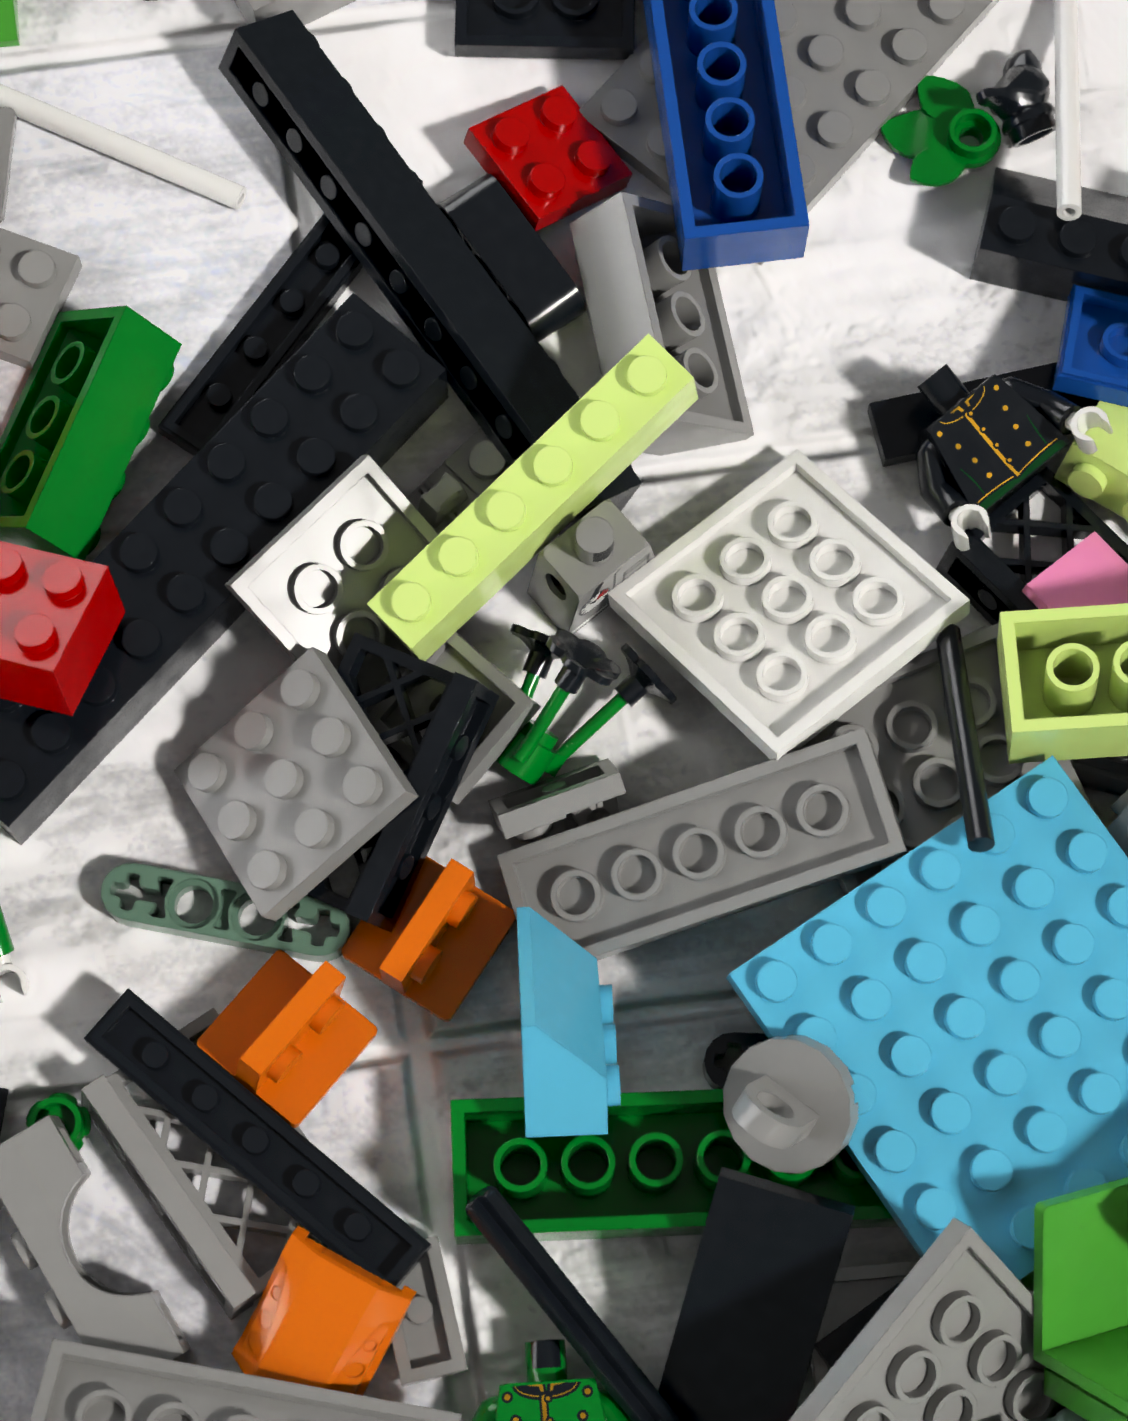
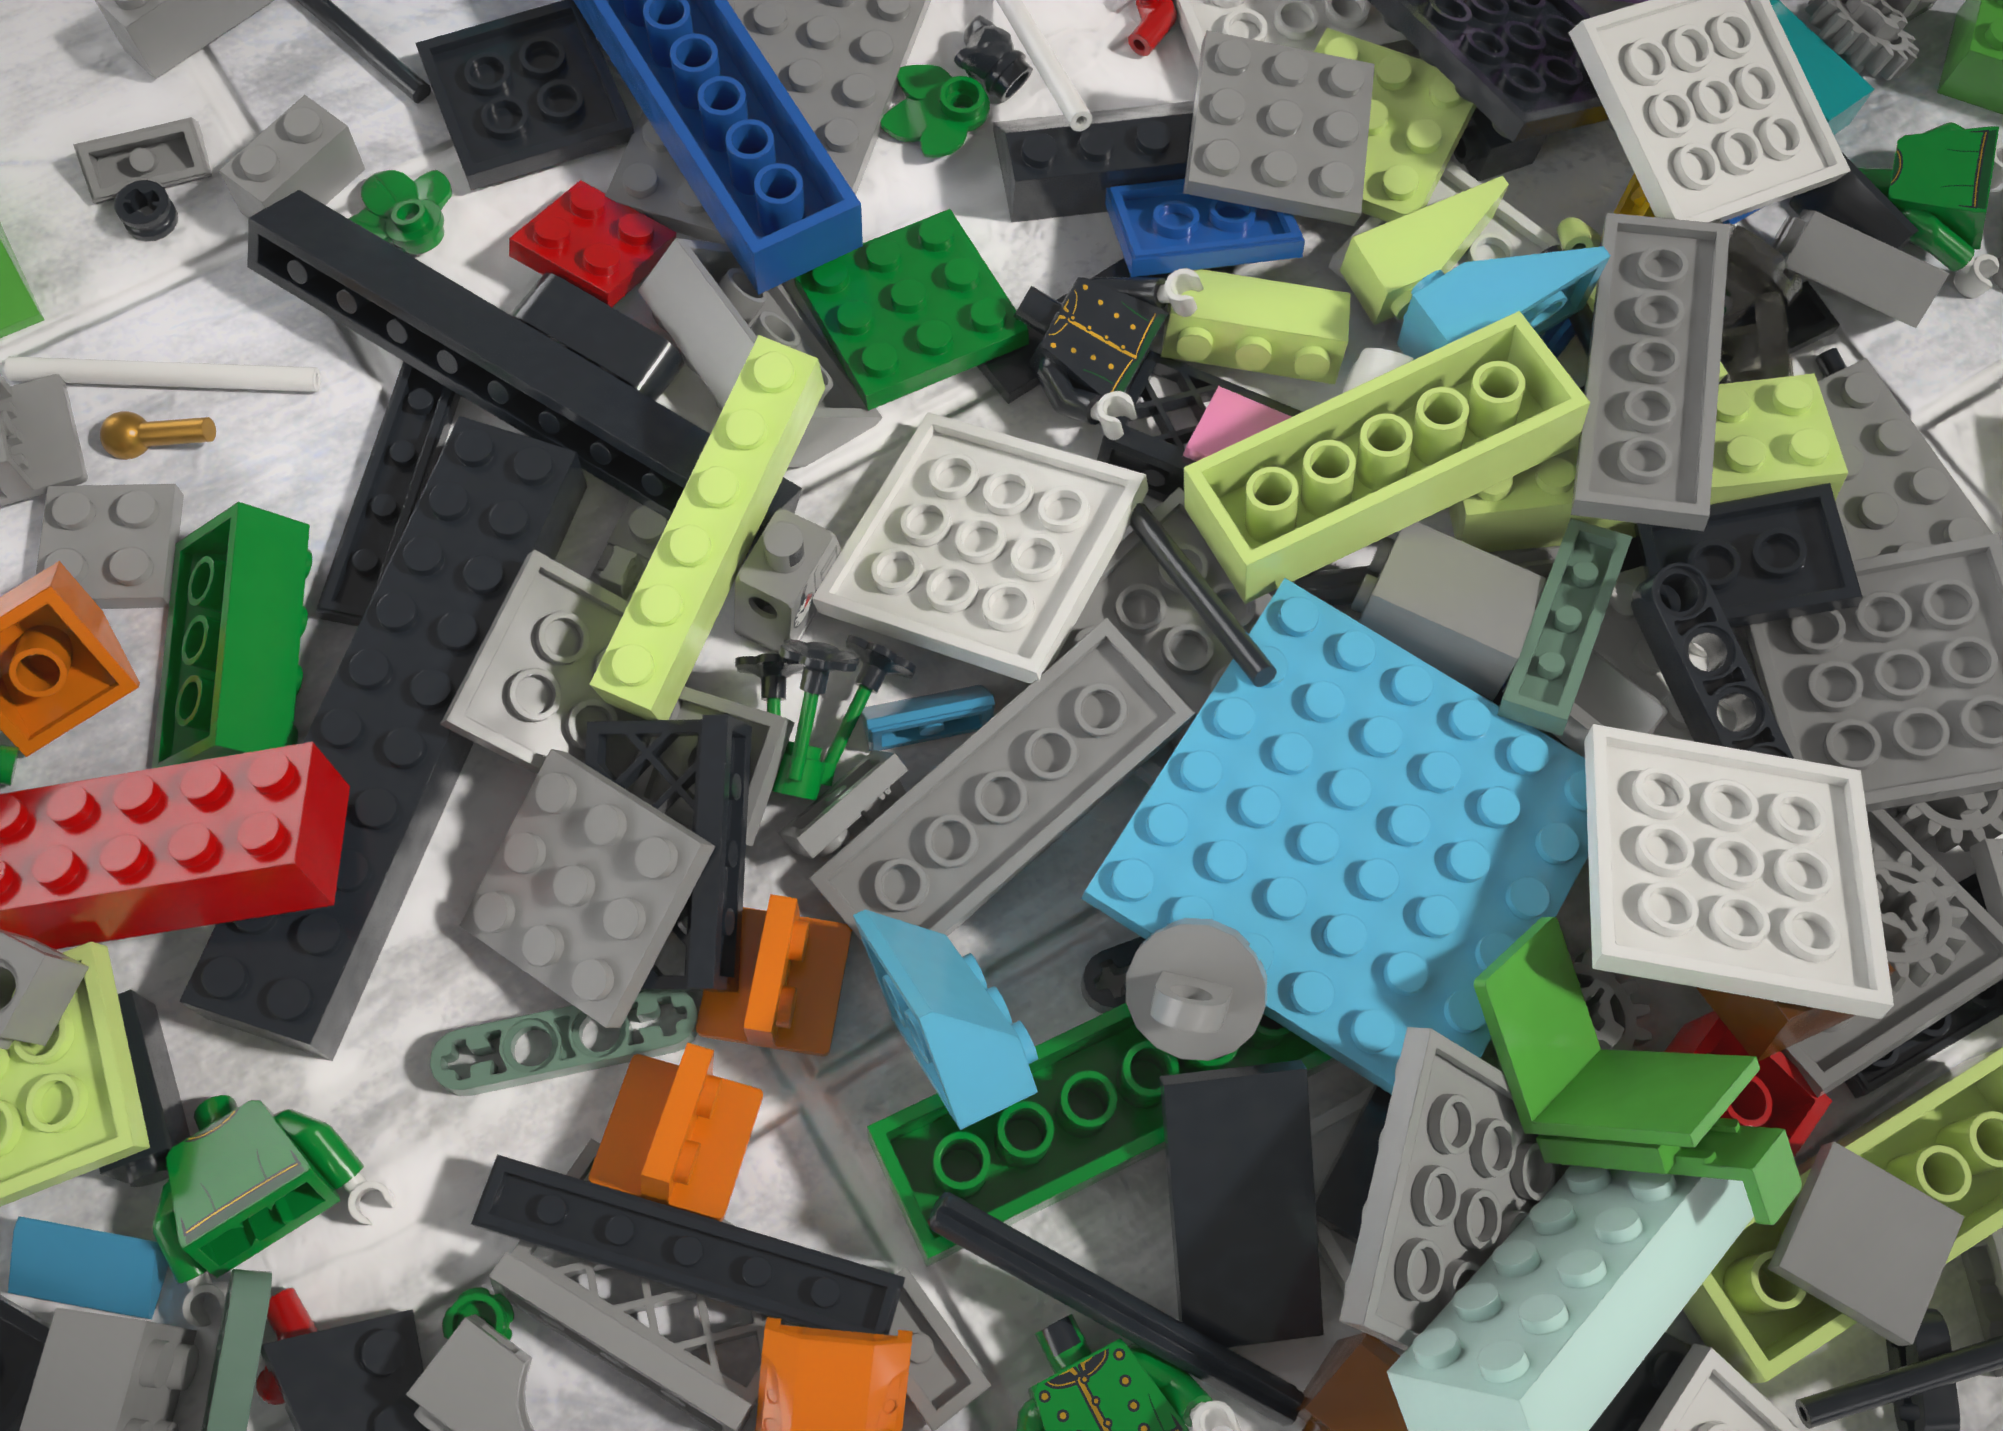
camera: 30 degrees left, 5 degrees down
(54, 190) = (130, 435): none -> pearl gold bar
(383, 54) = (405, 209): none -> green plate
(669, 746) = (927, 717): none -> dark azure slope
(827, 337) = (911, 309): none -> green plate

